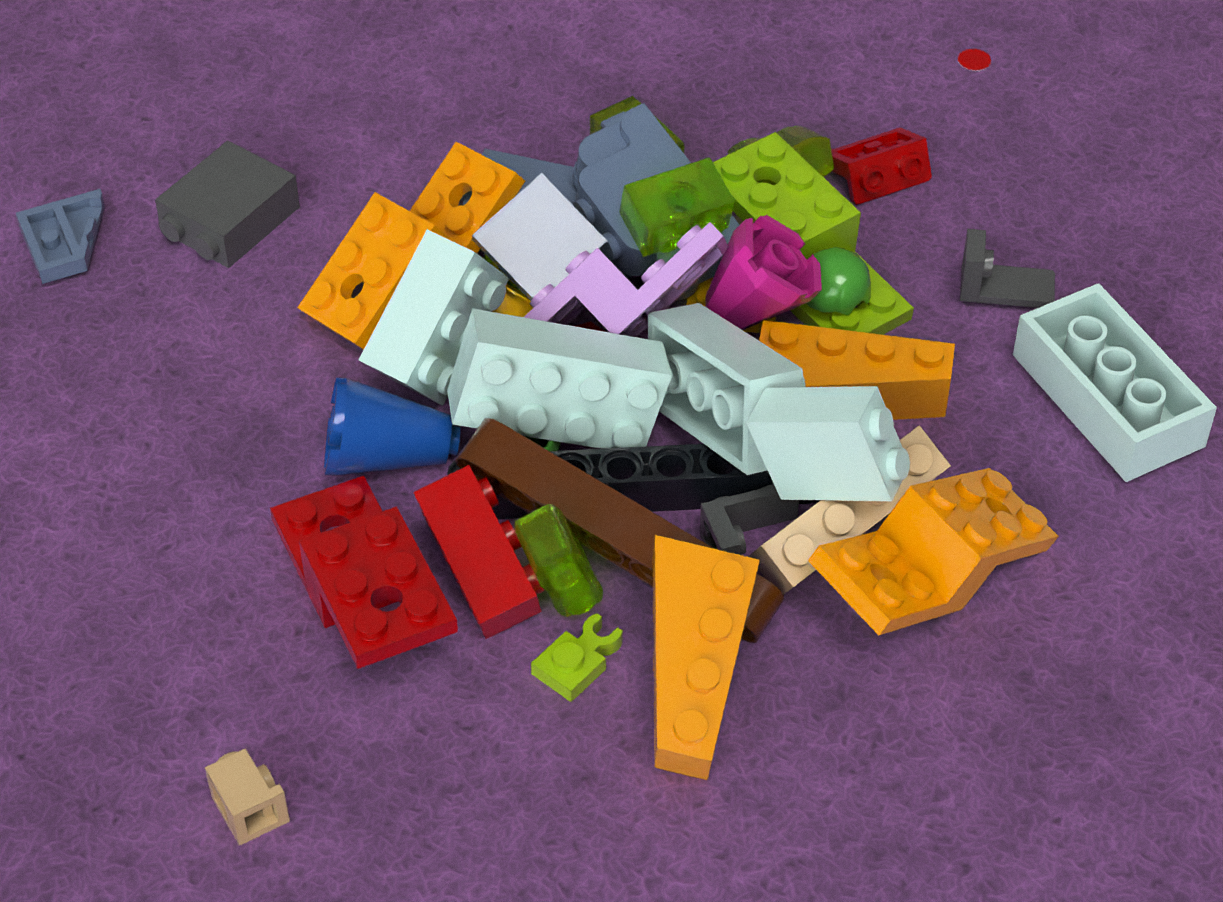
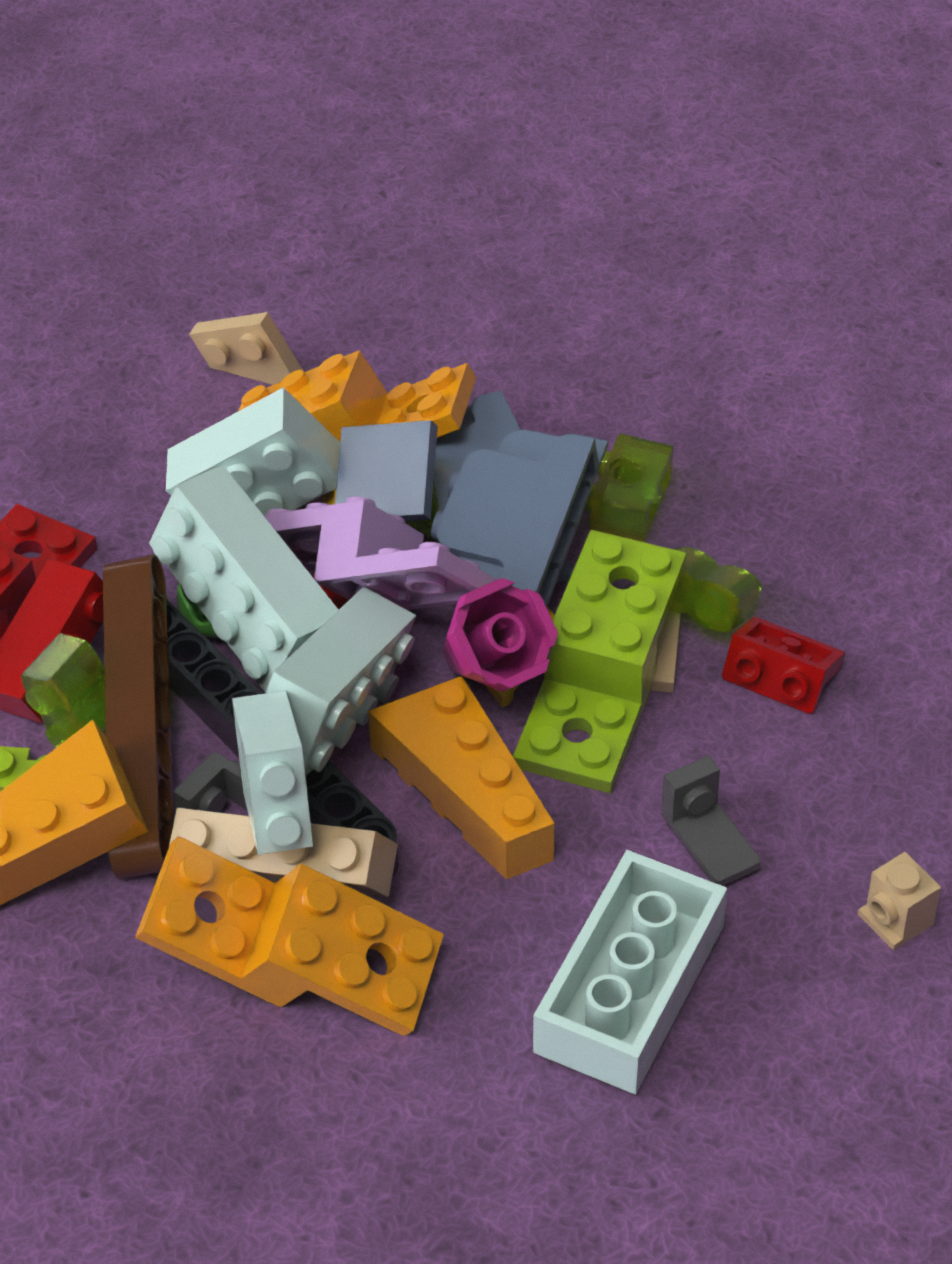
camera: 55 degrees right, 0 degrees up
(62, 234) = (200, 224): sand blue wing -> none
(227, 204) = (315, 288): dark grey brick -> none
(256, 273) = (246, 347): none -> tan wing
(384, 431) = (123, 502): blue cone -> none
(651, 205) = (475, 510): clear neon green brick -> none
(843, 281) = (567, 704): bright green hair -> none
(1152, 219) = (900, 901): none -> tan brick

